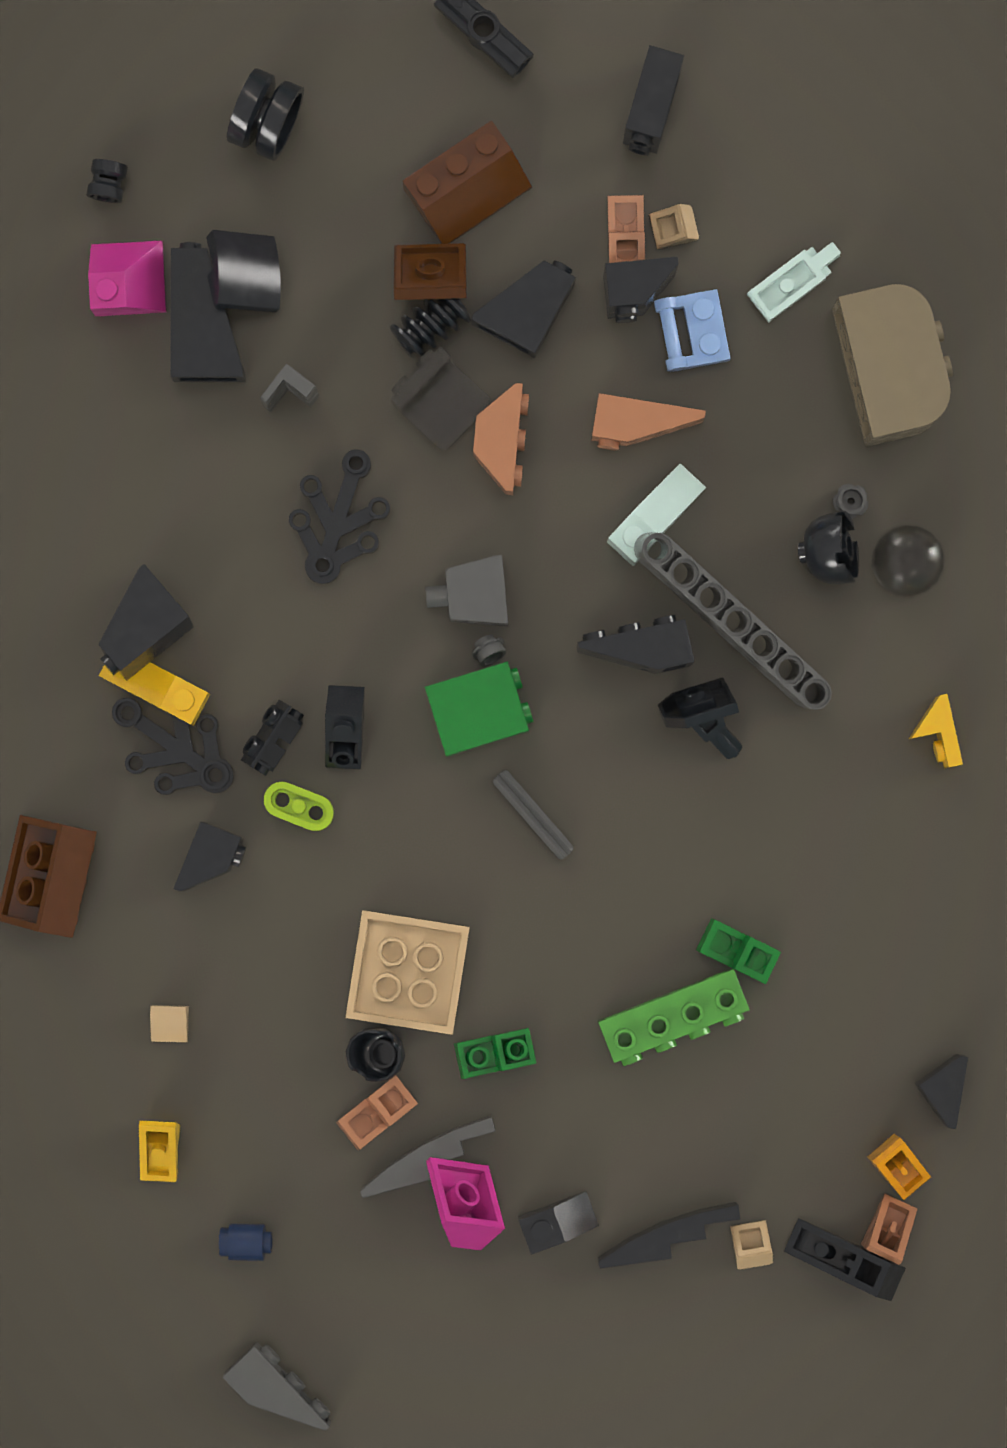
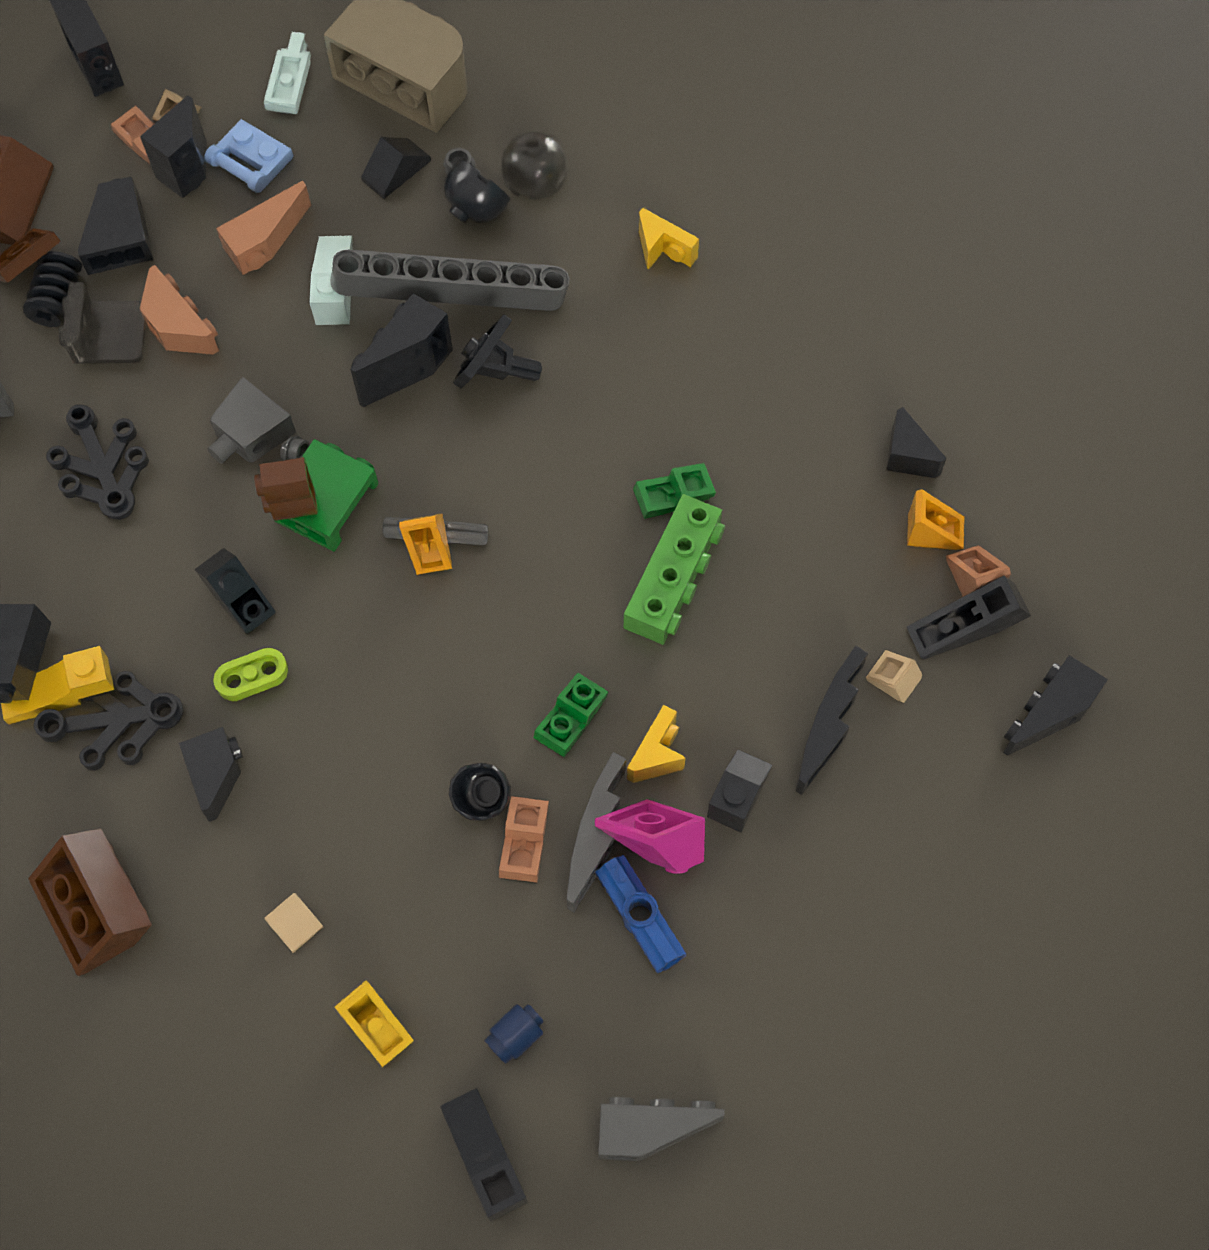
camera: 45 degrees left, 20 degrees down
(152, 1302) = (483, 1155): none -> black slope
(276, 725) = (182, 632): black hinge -> none
(397, 1266) = (652, 934): none -> blue piece
(407, 972) = (447, 715): tan plate -> none
(441, 702) = (286, 489): none -> reddish brown brick
(515, 822) = (427, 543): none -> light orange slope
(517, 1140) = (652, 756): none -> yellow slope
(800, 451) = (393, 164): none -> black slope
(845, 1381) = (1063, 703): none -> black slope

